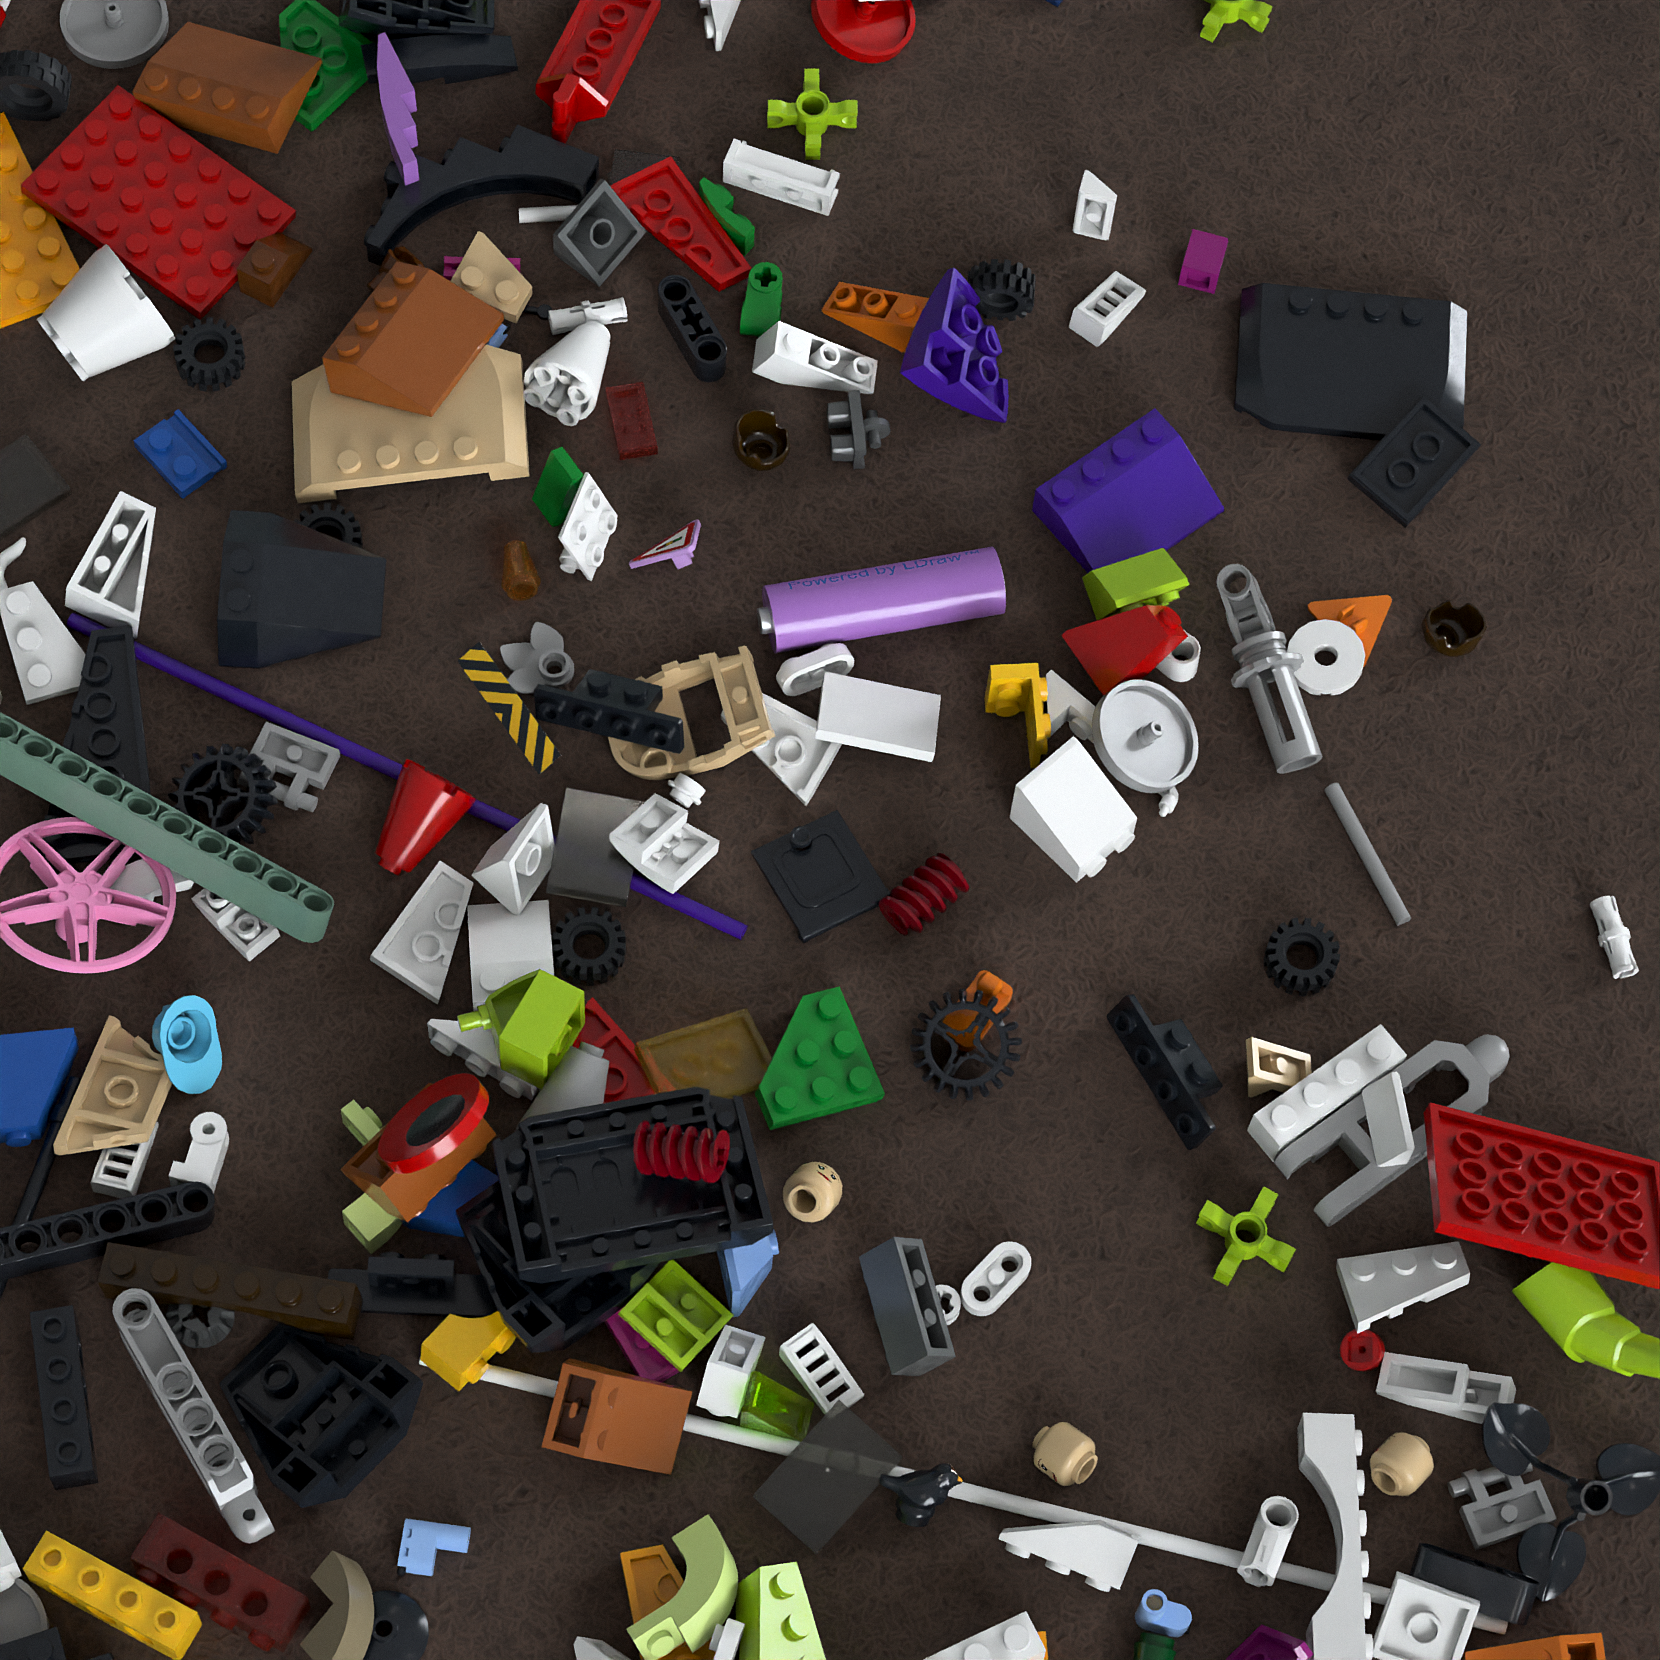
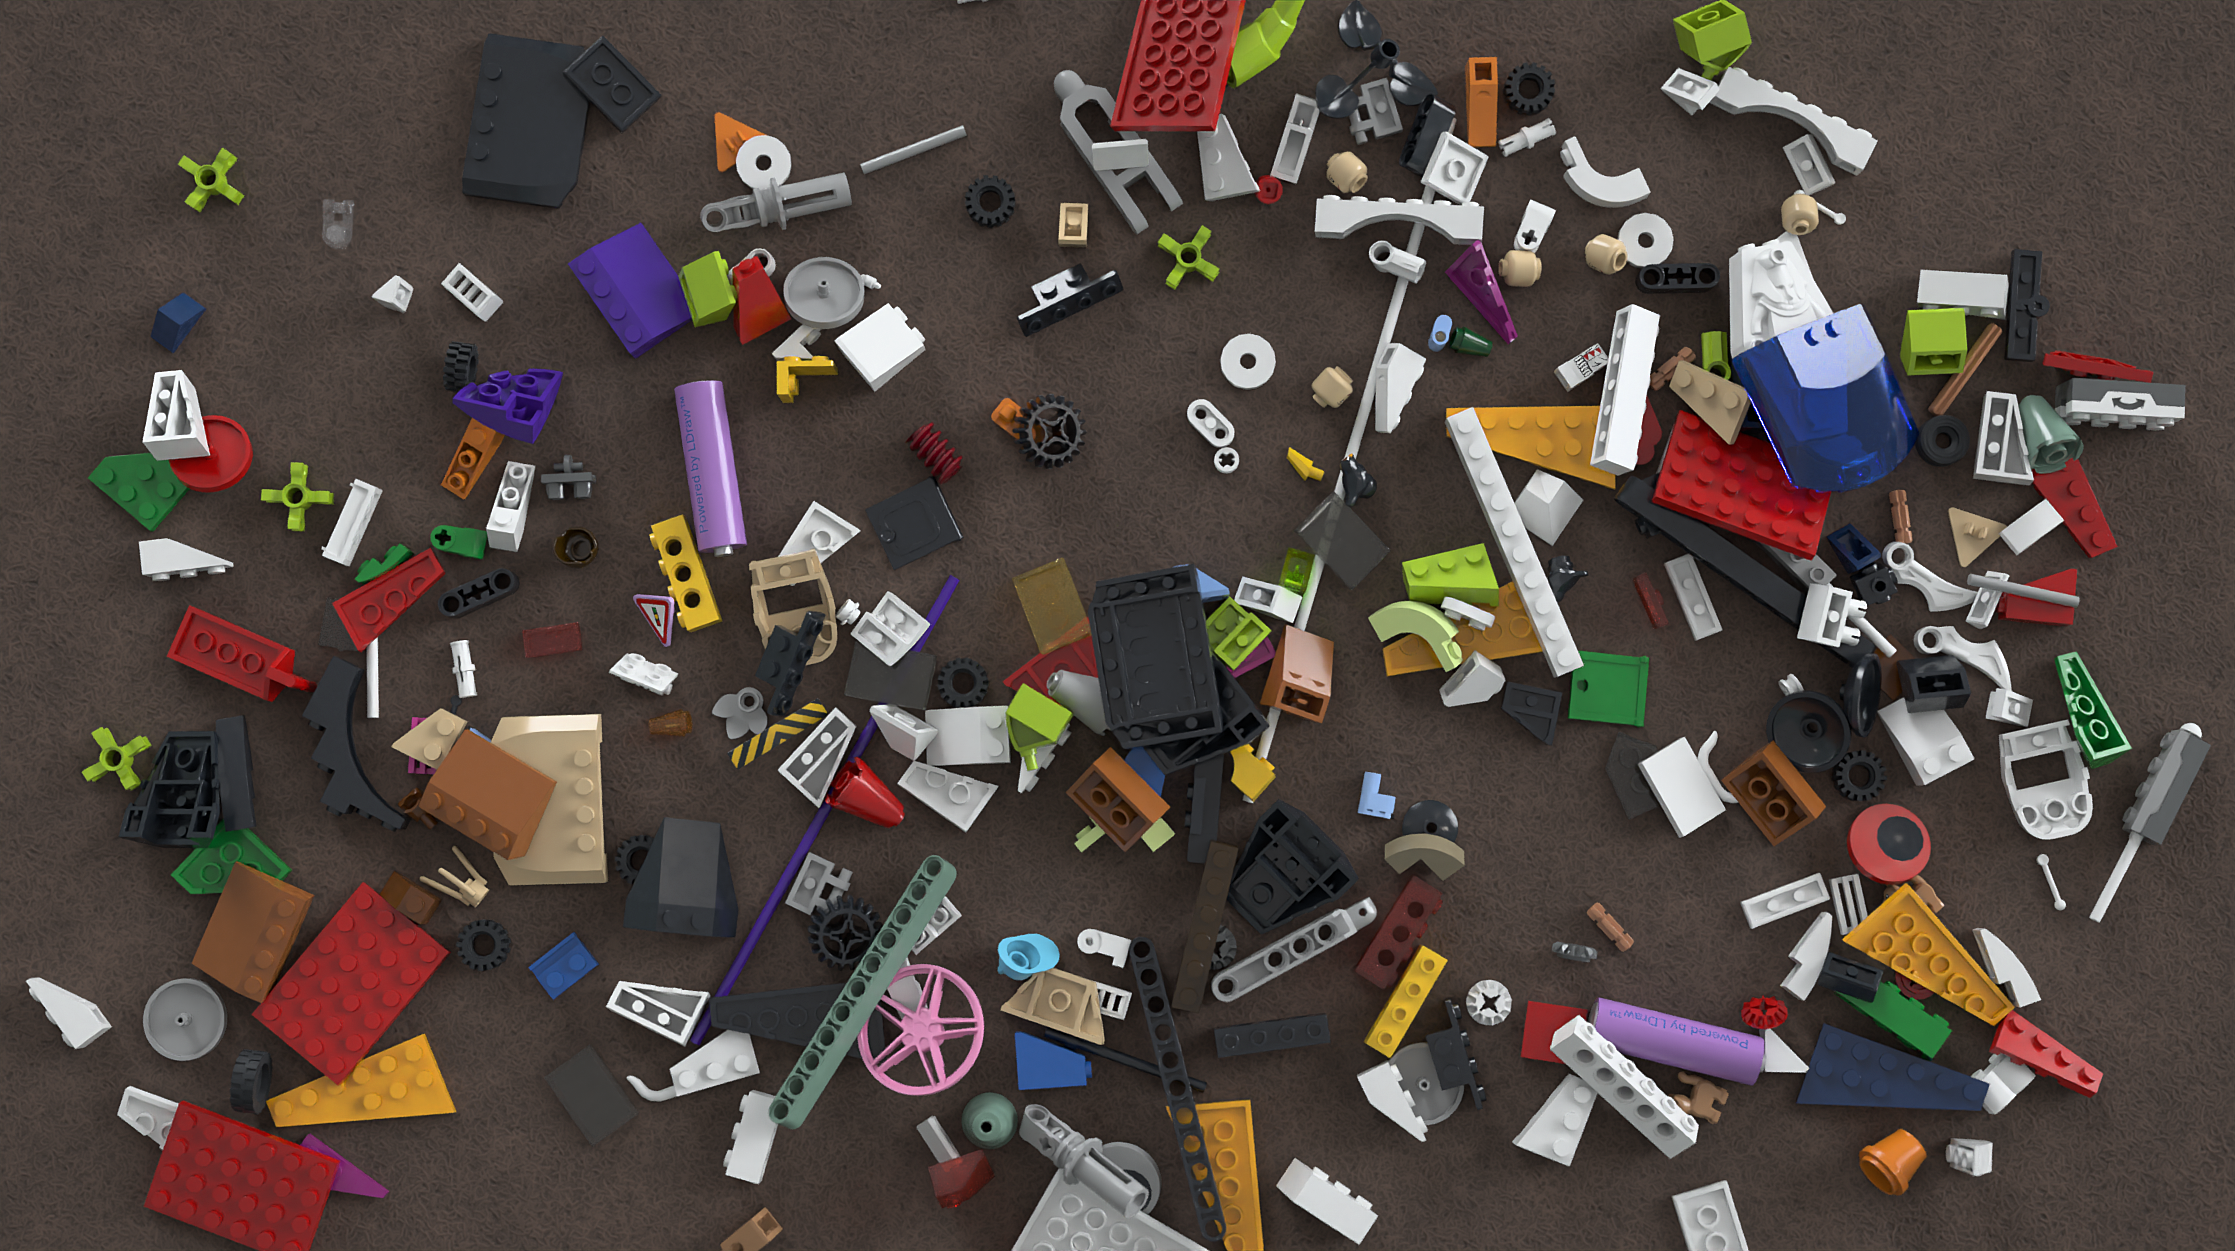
camera: 80 degrees left, 20 degrees up
(104, 318) = (457, 1020): white cone -> none
(283, 336) = (472, 891): none -> tan plant
(397, 104) = (280, 804): medium lavender slope -> none
(433, 1123) = (1113, 786): red piece -> none
(477, 755) = (818, 757): none -> white wedge
(557, 486) = (611, 693): green tile -> none
(569, 374) = (514, 681): white cone -> none
(597, 234) = (399, 657): dark grey slope -> none
(680, 1155) = (1143, 622): dark red piece -> none
(719, 596) = (678, 530): none -> yellow brick
(807, 671) = (762, 526): white plate -> none
(812, 1192) = (1149, 539): tan head -> none
(818, 1064) = (1056, 532): green plate -> none
(823, 1349) = (1251, 554): white slope -> none
(878, 716) = (799, 476): white tile -> none
(906, 1306) = (1231, 482): dark grey brick -> none
(940, 1421) = (1304, 465): none -> yellow bar
(1086, 1354) = (1254, 346): none -> white tile
(1171, 147) = (338, 233): none -> clear plate
(1203, 261) = (439, 218): magenta panel -> none
(1325, 1091) = (1092, 193): white arch -> none
(1453, 629) = (747, 71): dark brown hair -> none

